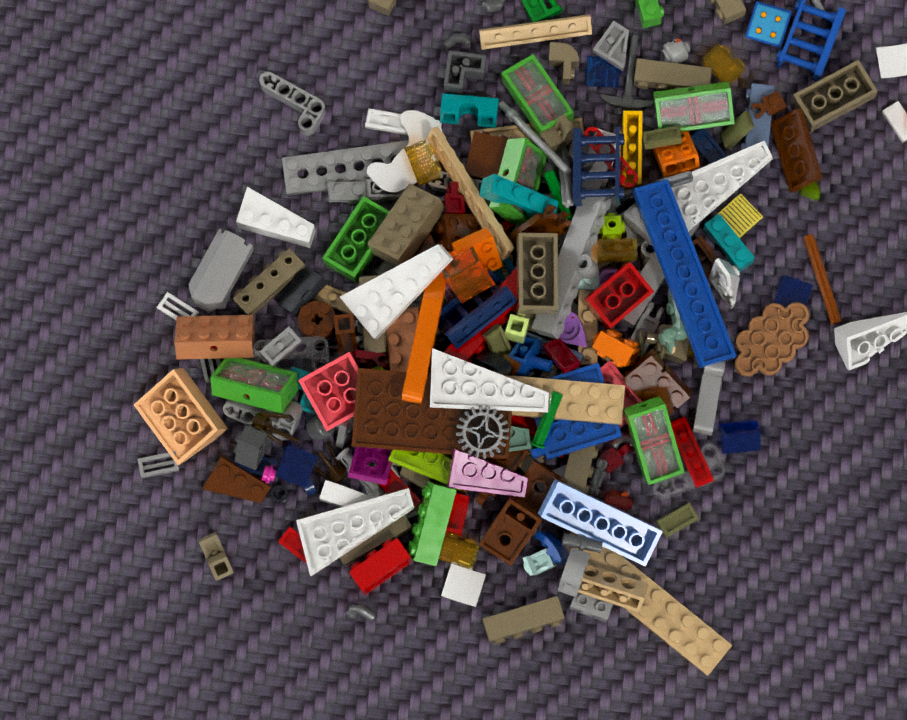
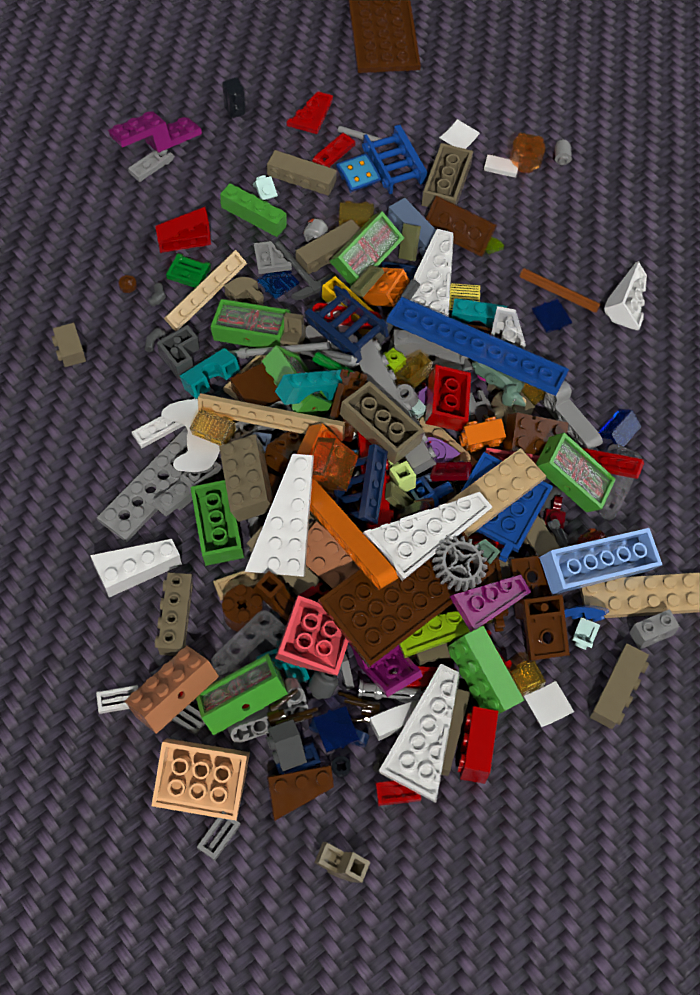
camera: 50 degrees left, 15 degrees down
(219, 271) = (126, 637): light grey brick -> none
(268, 474) = (320, 755): dark pink plate -> none
(280, 346) = (235, 645): light grey plate -> none
(290, 100) = (36, 477): light grey beam -> none
(301, 291) = (207, 598): black piece -> none
(361, 610) = (494, 796): dark grey arm -> none
(453, 201) = (265, 433): dark red plate -> none
(546, 420) = (494, 519): green axle -> none
(573, 572) = (627, 607): light grey brick -> none
(582, 543) = (609, 583): dark grey pin -> none
(613, 588) = (653, 601): tan brick -> none
(677, 520) = (642, 515): olive tile -> none
(771, 104) = (415, 208): reddish brown plate -> none
(771, 339) = (573, 348): medium nougat plate -> none

